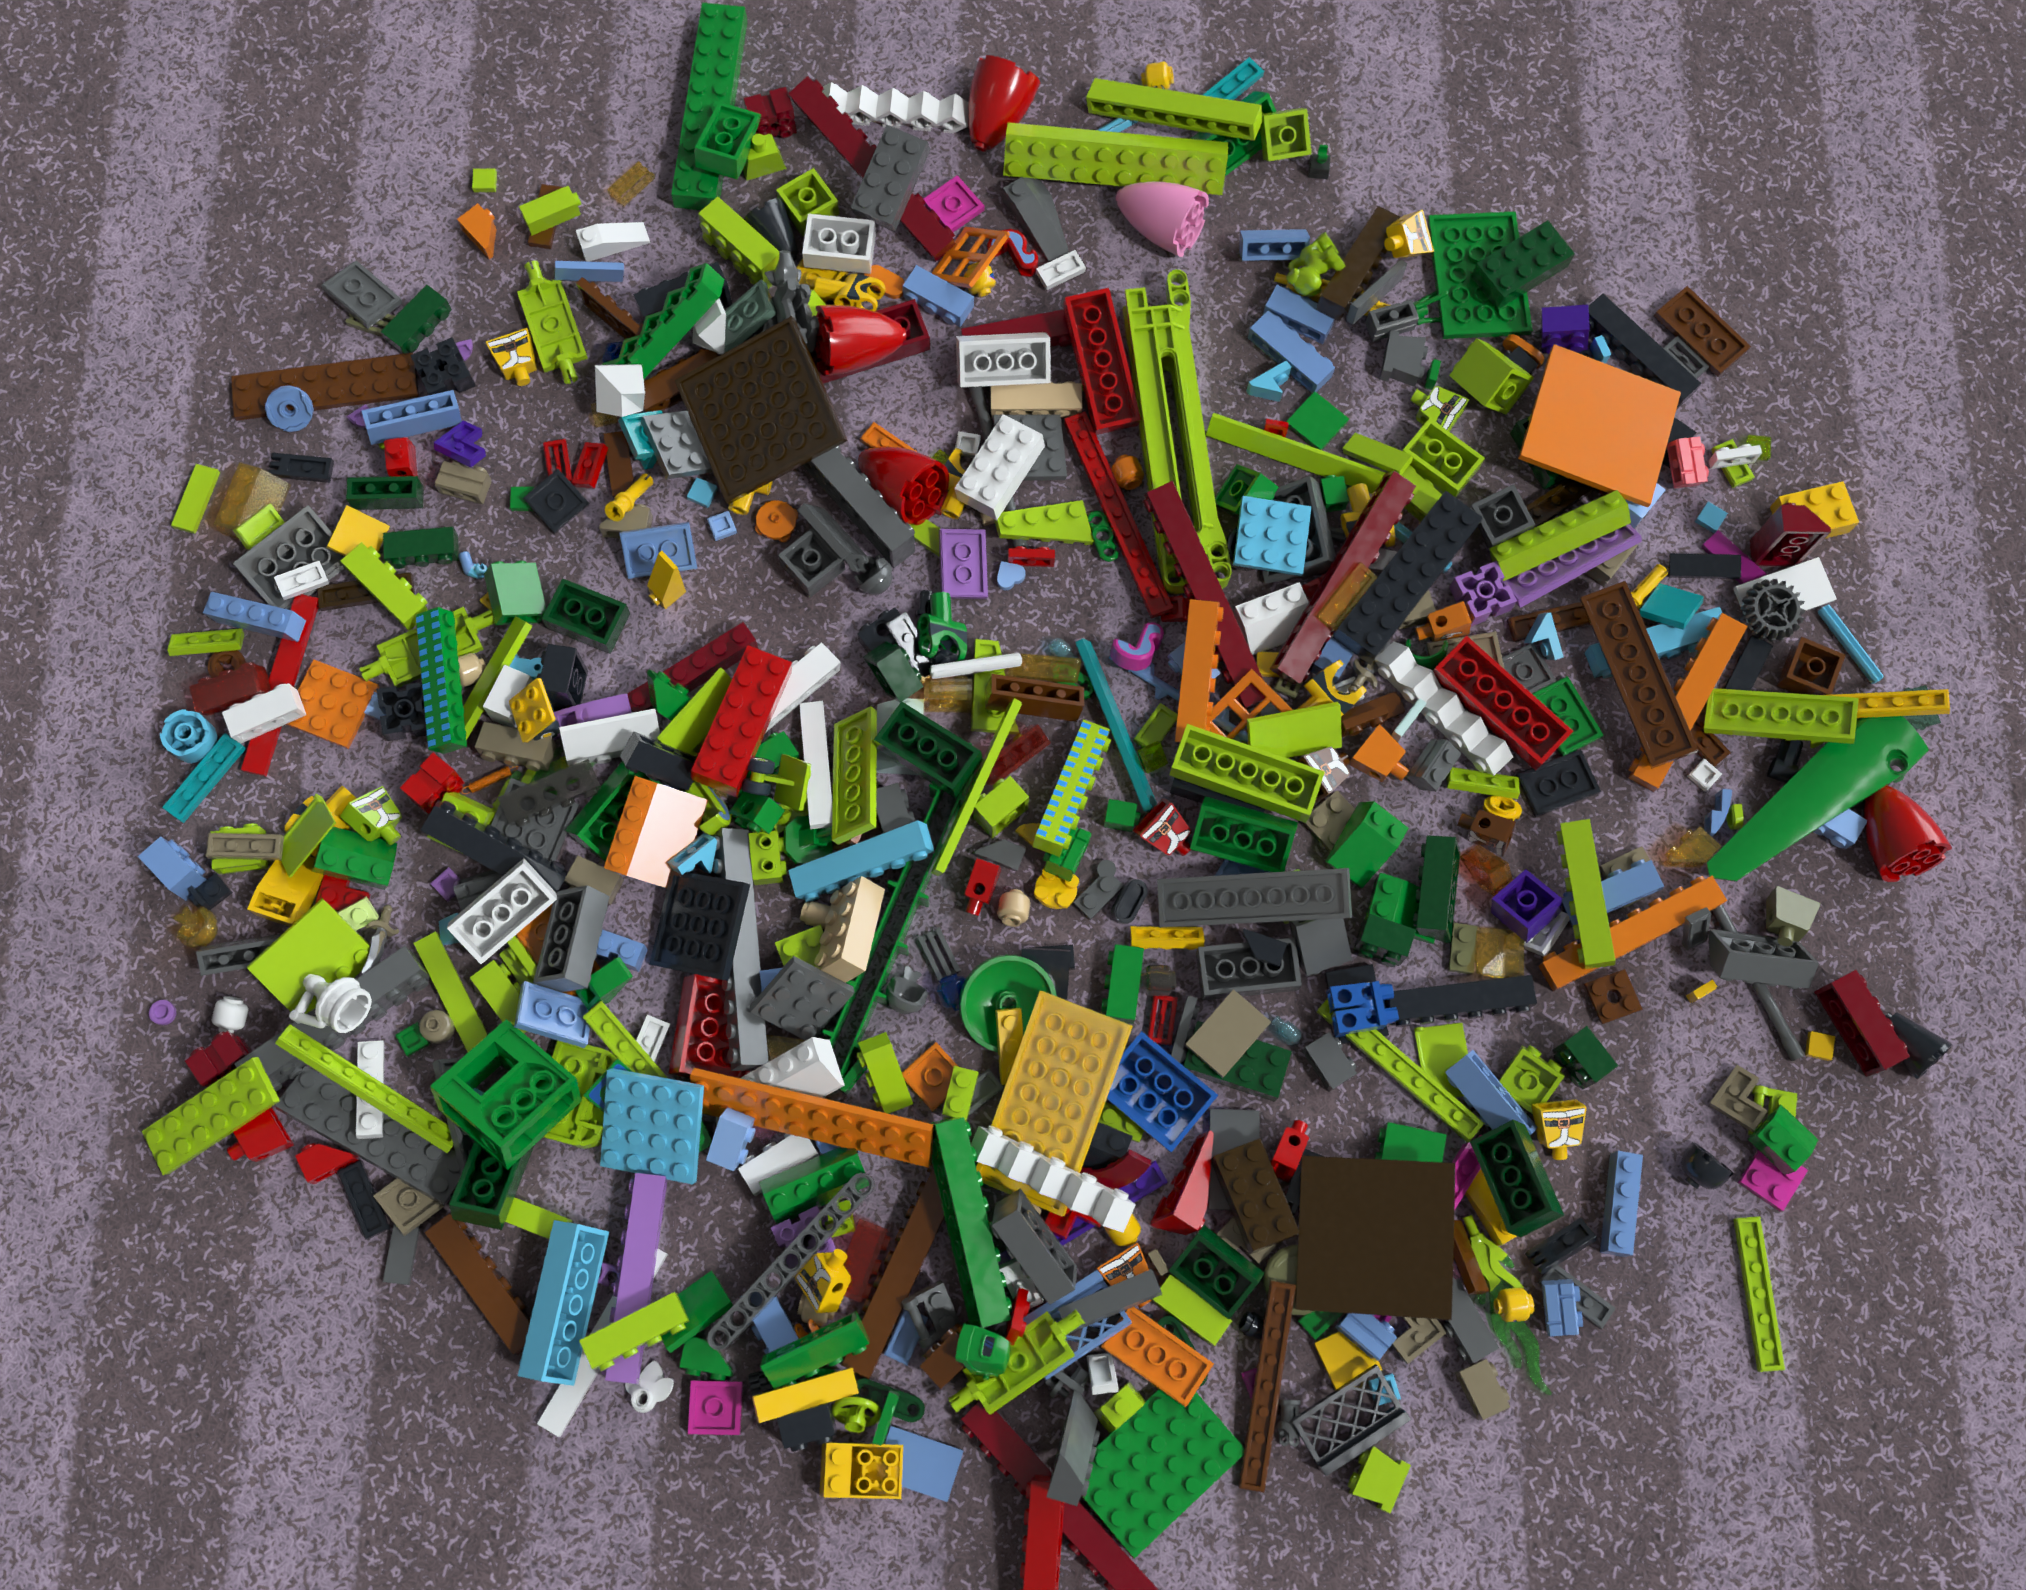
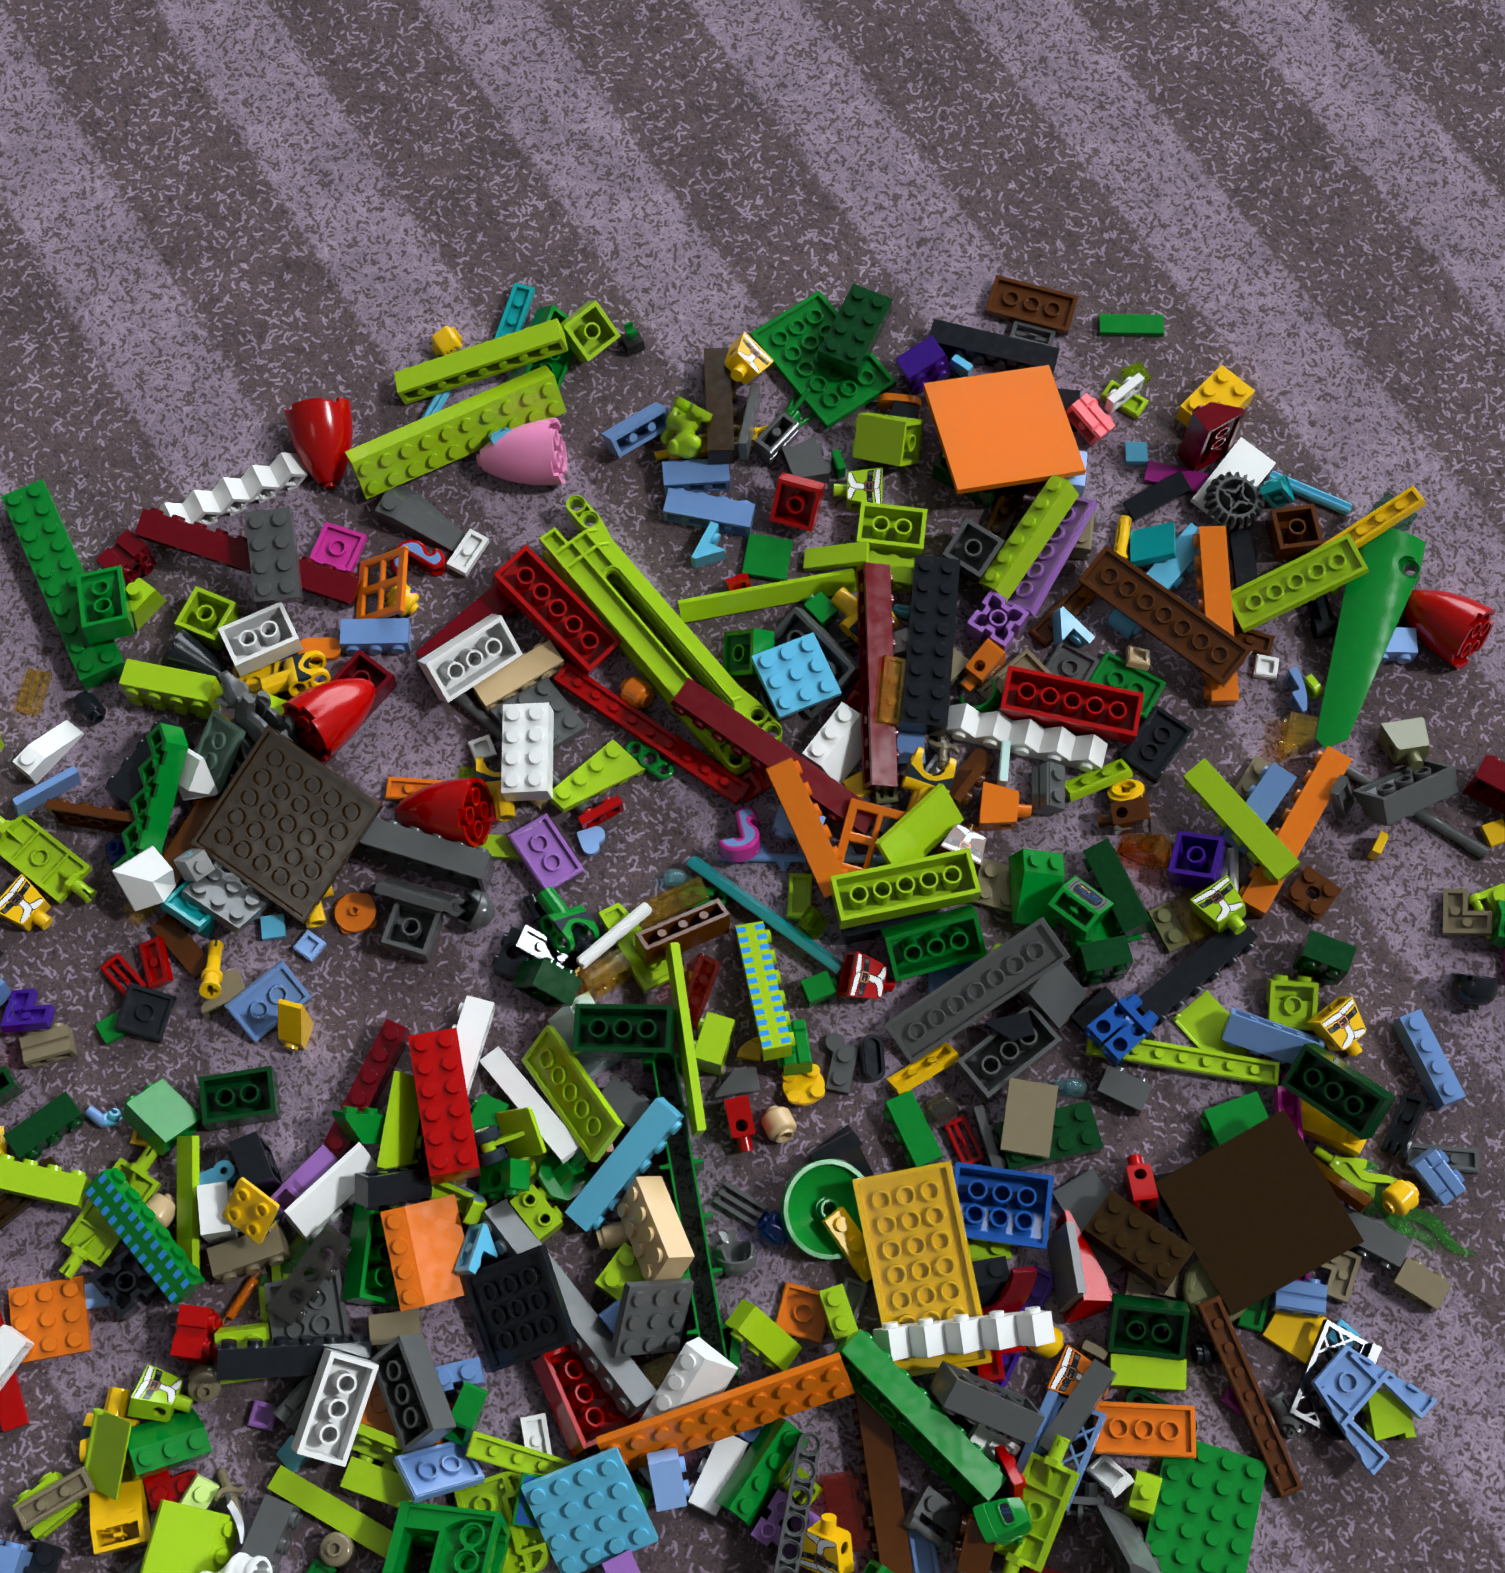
camera: 30 degrees left, 5 degrees down
(410, 829) = (202, 1384): none -> dark tan head
(666, 222) = (89, 707): none -> black brick
(667, 401) = (194, 864): none -> light grey brick
(1148, 180) = (495, 436): none -> medium azure tile
(1179, 1178) = (1066, 1266): none -> dark grey tile
(1360, 1431) = (1346, 1387): none -> medium blue wing
(1373, 386) = (797, 501): none -> red brick
(1390, 880) = (1079, 907): none -> green slope
(1519, 957) = (1220, 906): none -> lime torso
(1591, 698) = (1138, 658): none -> tan tile
(1783, 400) = (1131, 325): none -> green tile
(1819, 625) = (1277, 491): none -> teal plate

